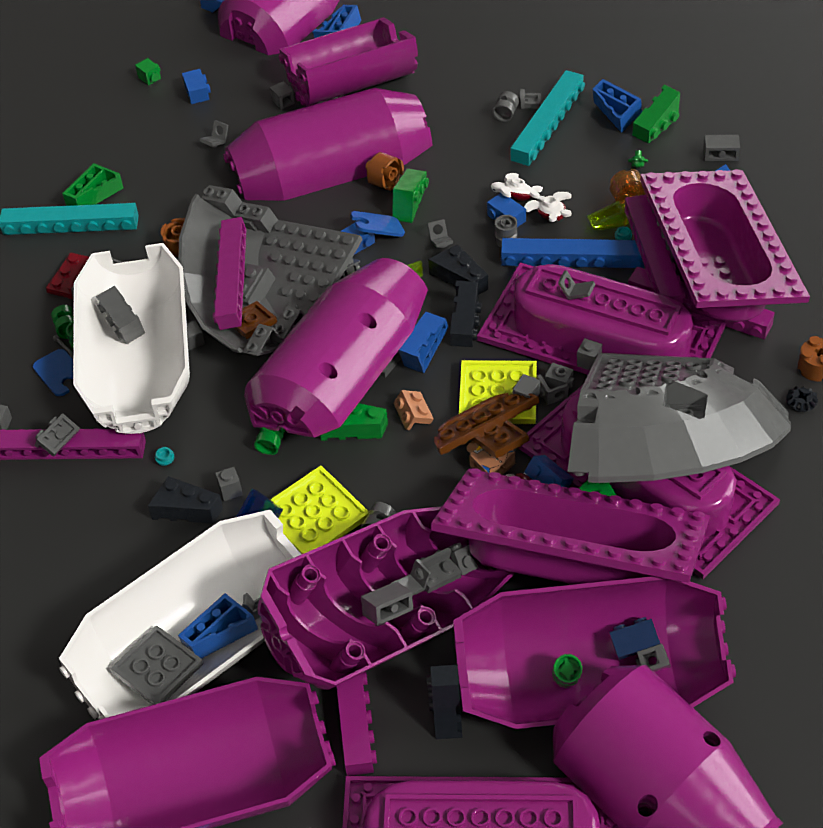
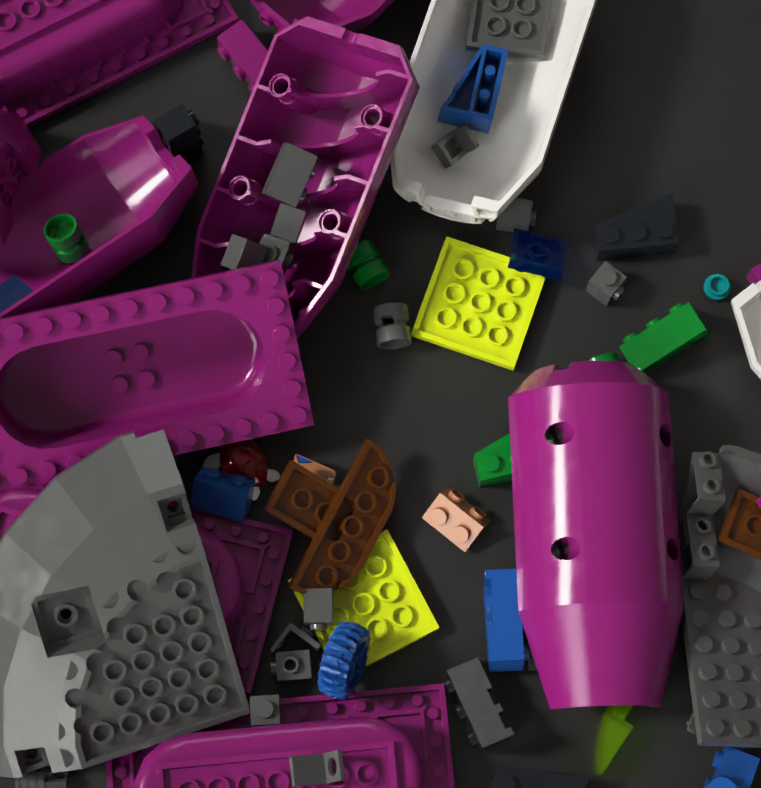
camera: 145 degrees right, 25 degrees up
(218, 437) = (664, 337): none -> green wedge
(450, 577) = (243, 253): none -> dark grey brick
(528, 349) = (344, 660): none -> blue gear

